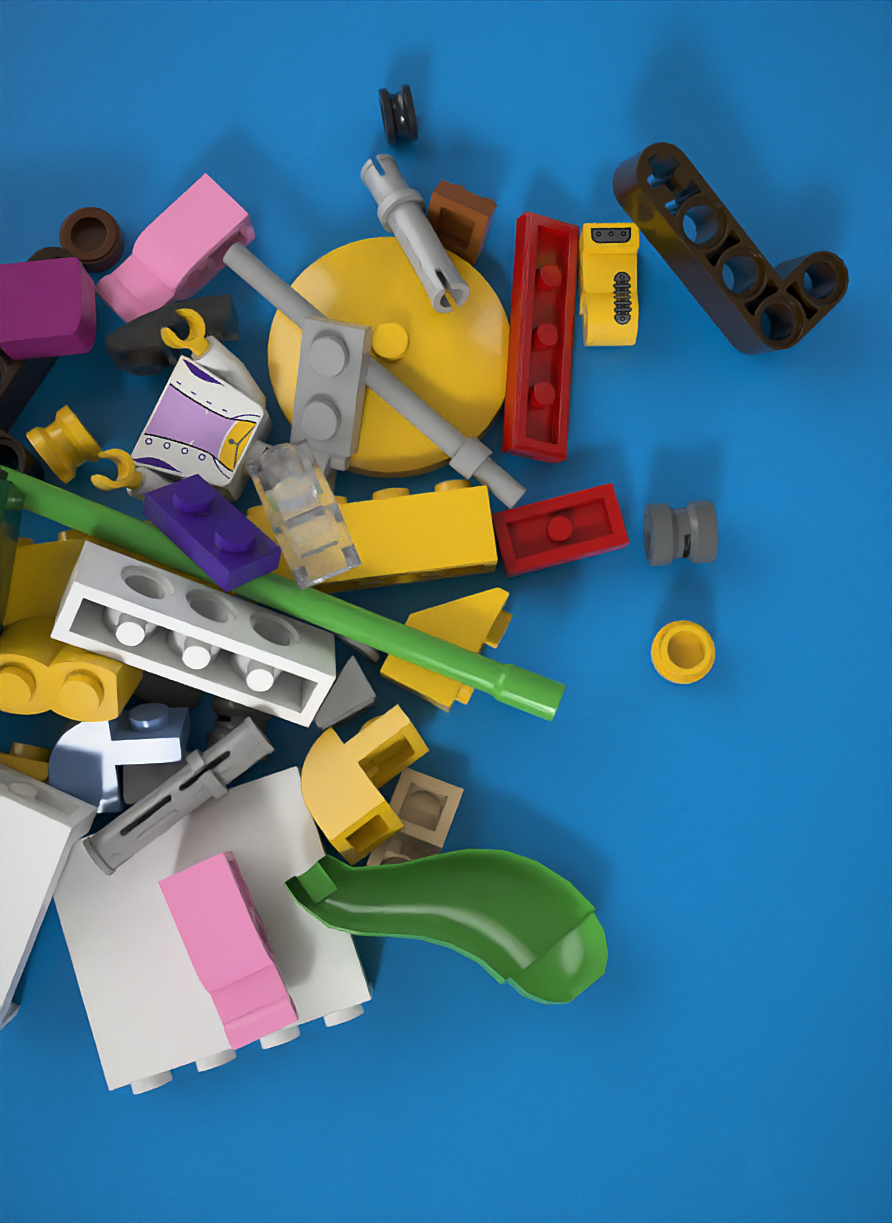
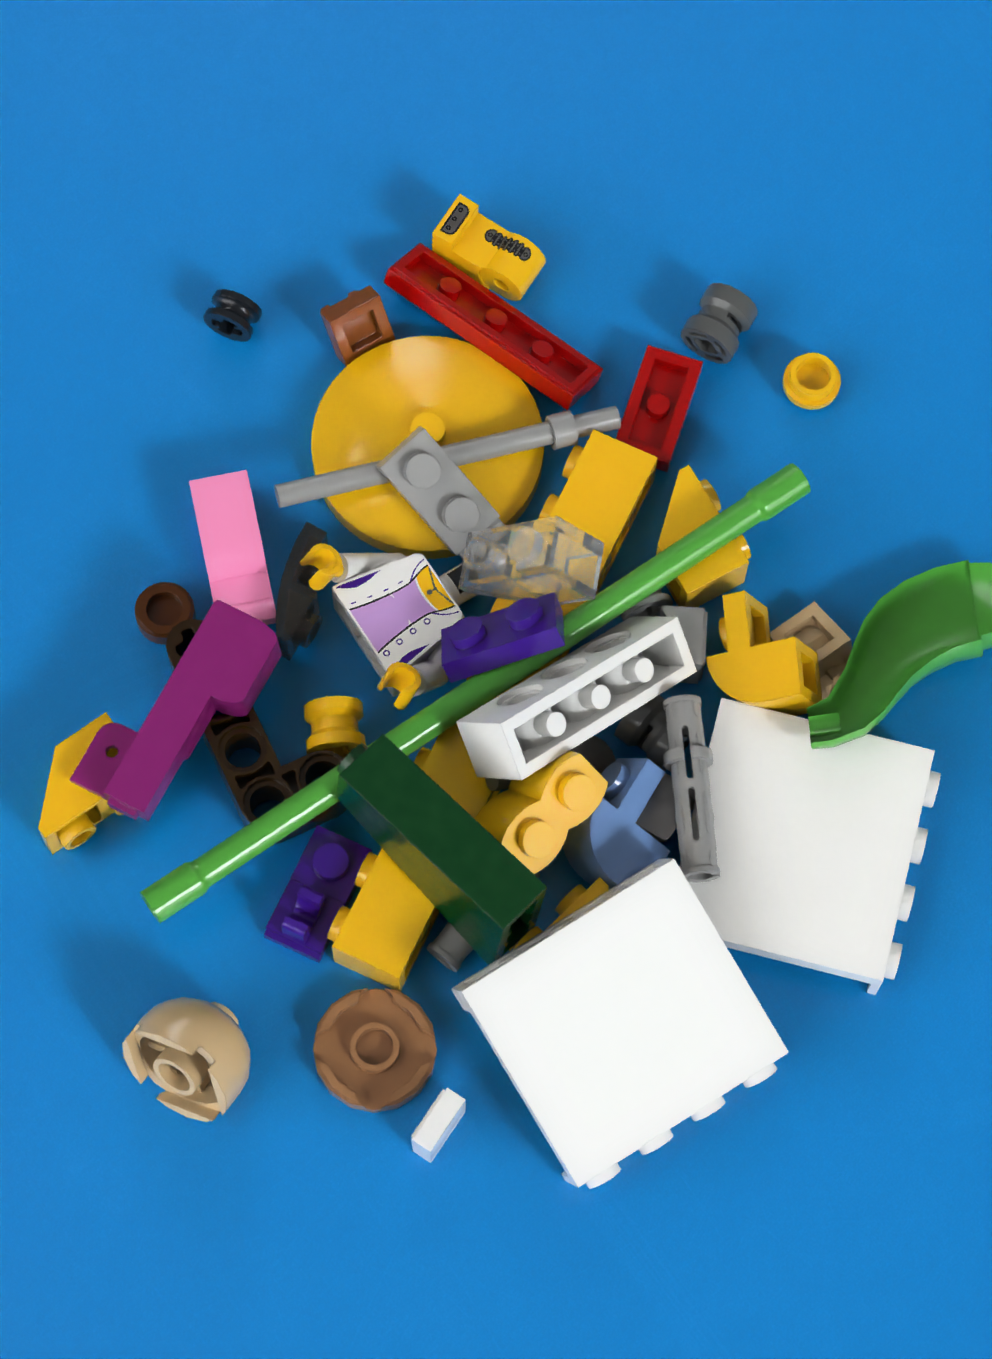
camera: 55 degrees left, 10 degrees down
(229, 948) = (831, 815): bright pink piece -> none
(403, 214) = (325, 360): light grey pin -> none
(723, 241) = (566, 157): dark brown beam -> none

